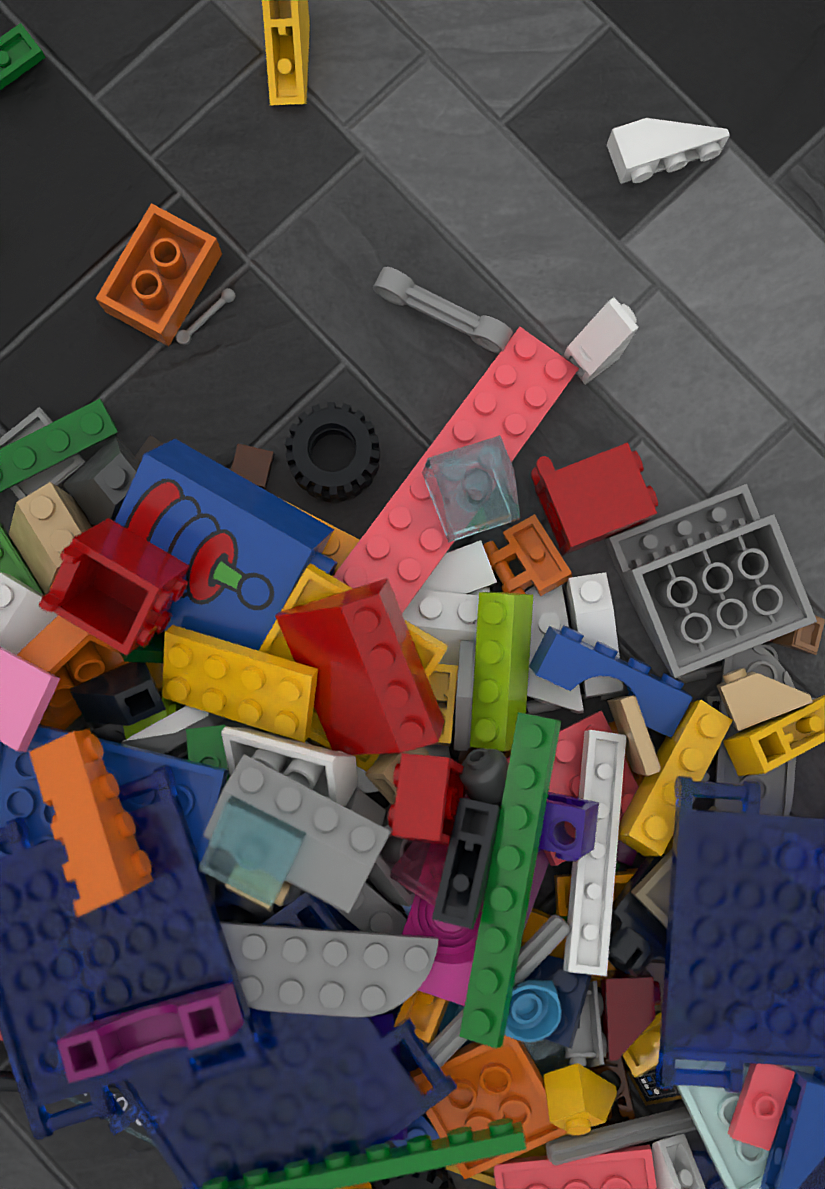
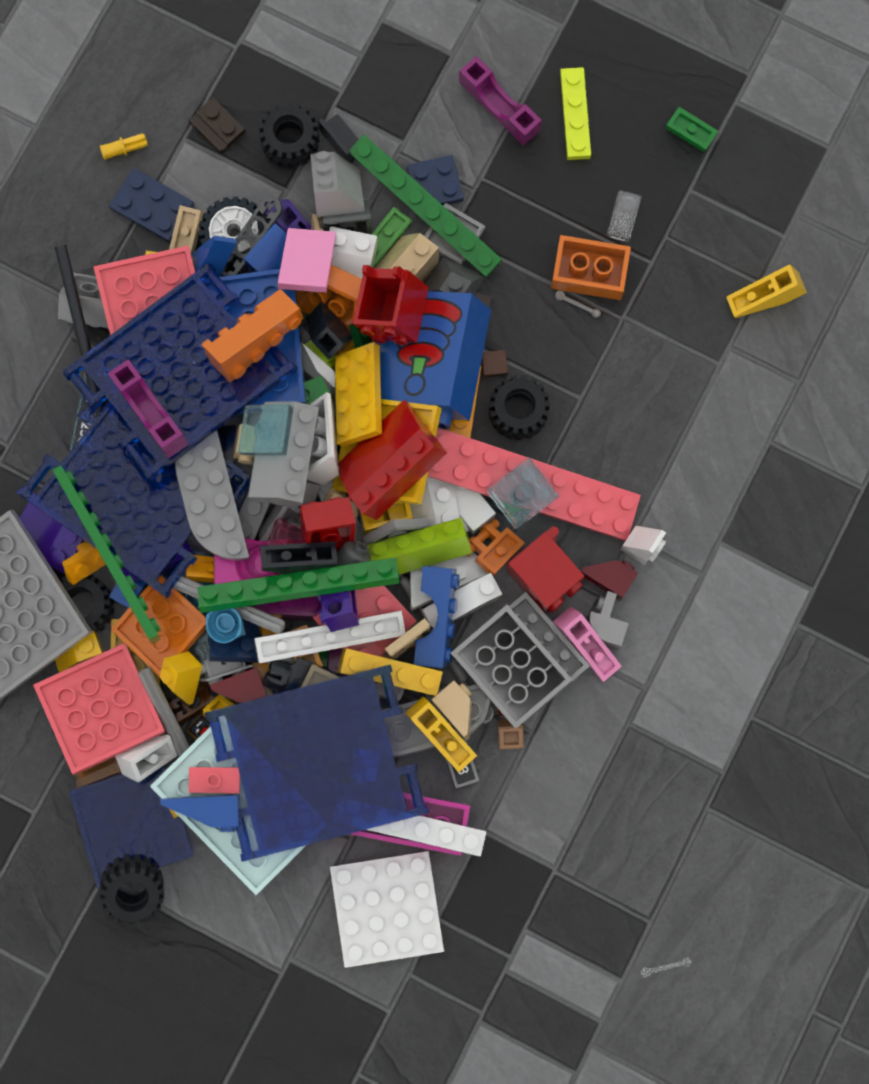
camera: 75 degrees right, 5 degrees down
(97, 204) = (624, 216): none -> clear plate
(483, 330) = (633, 441): light grey piece -> none
(626, 407) = (611, 576): none -> dark red slope
(658, 145) = (788, 540): white slope -> none
(691, 445) = (608, 629): none -> light grey brick
(708, 477) = (587, 643): none -> bright pink slope

